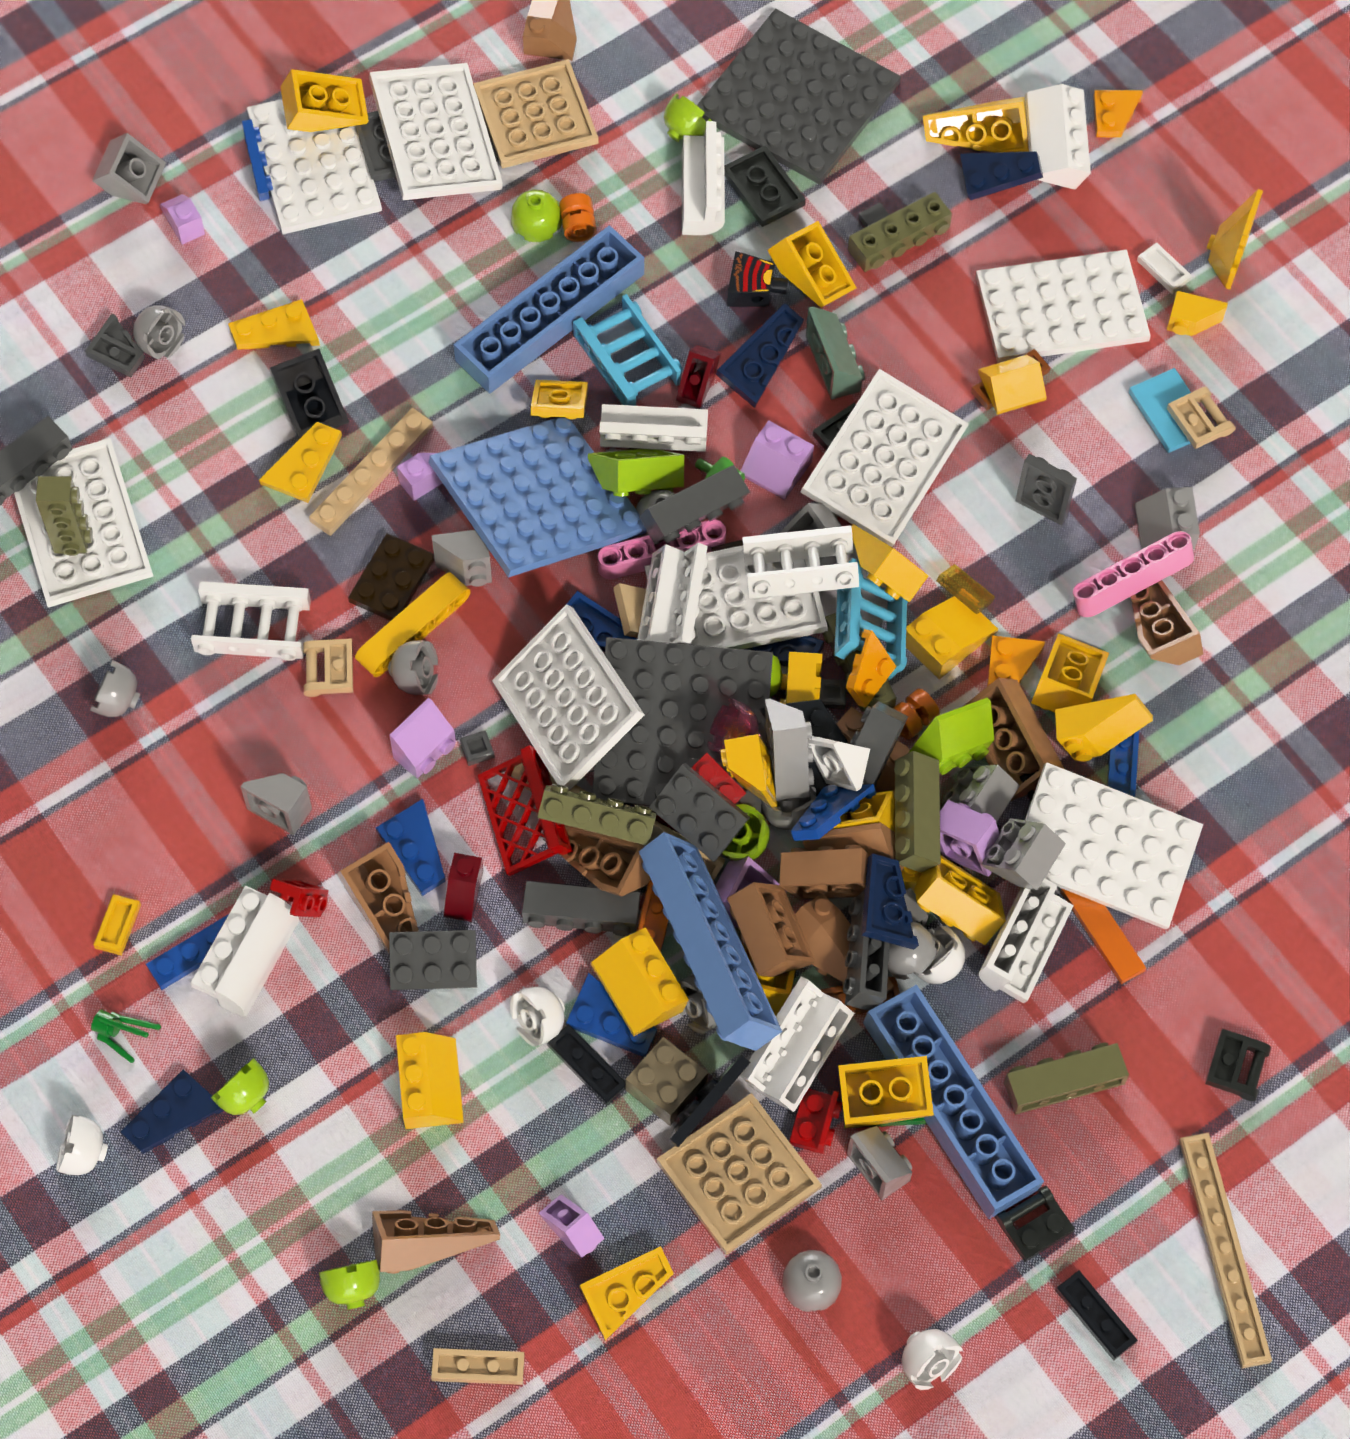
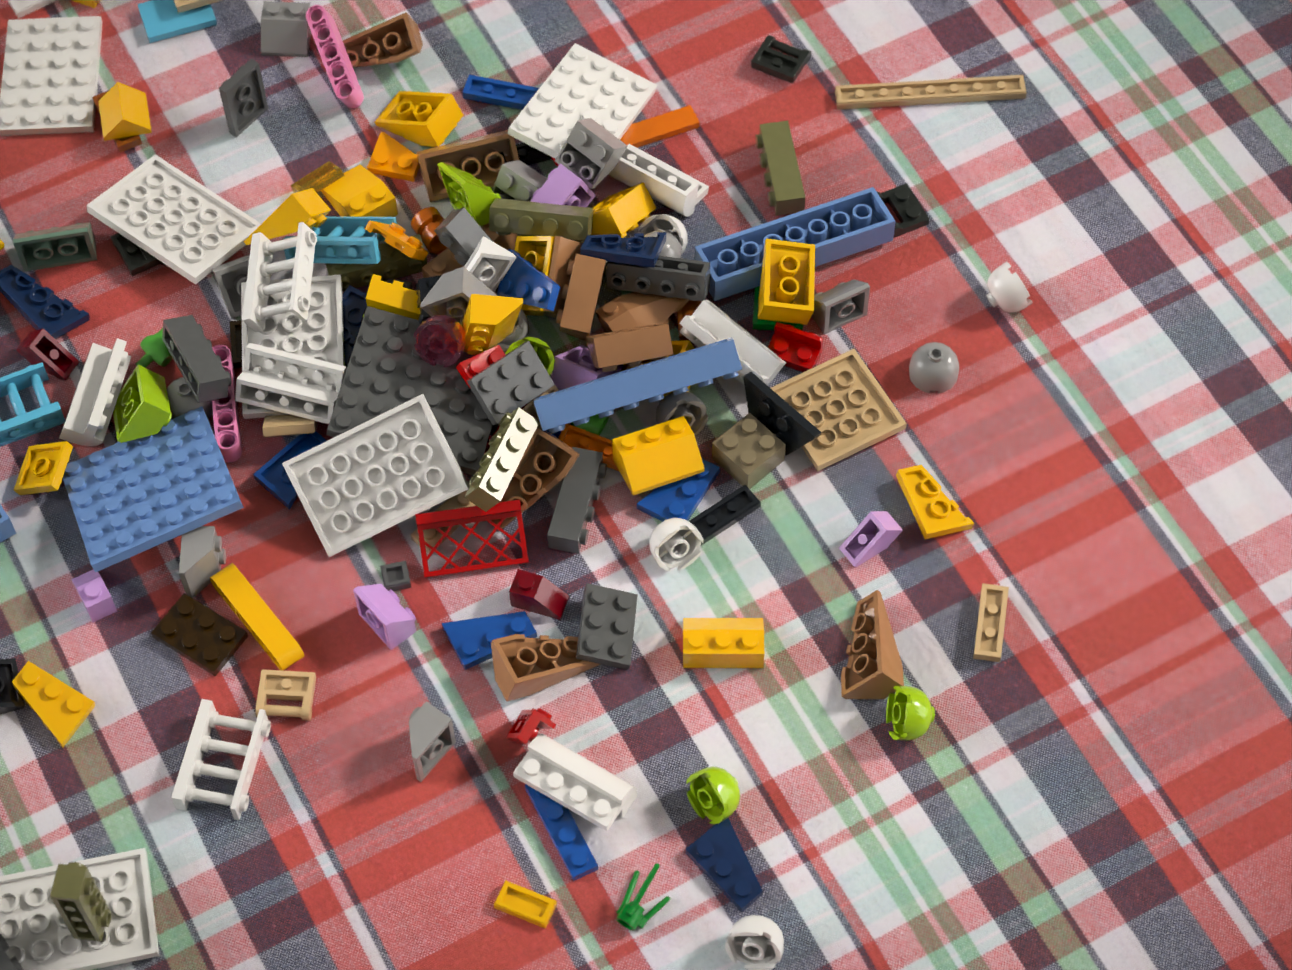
camera: 80 degrees left, 5 degrees down
(116, 692) = (274, 889): light grey cylinder -> none
(371, 471) = (76, 644): tan plate -> none
(414, 668) = (305, 617): light grey cylinder -> none
(777, 460) = (152, 300): lavender slope -> none
(1096, 1315) = (977, 181): black tile -> none
(1100, 725) = (476, 103): yellow slope -> none

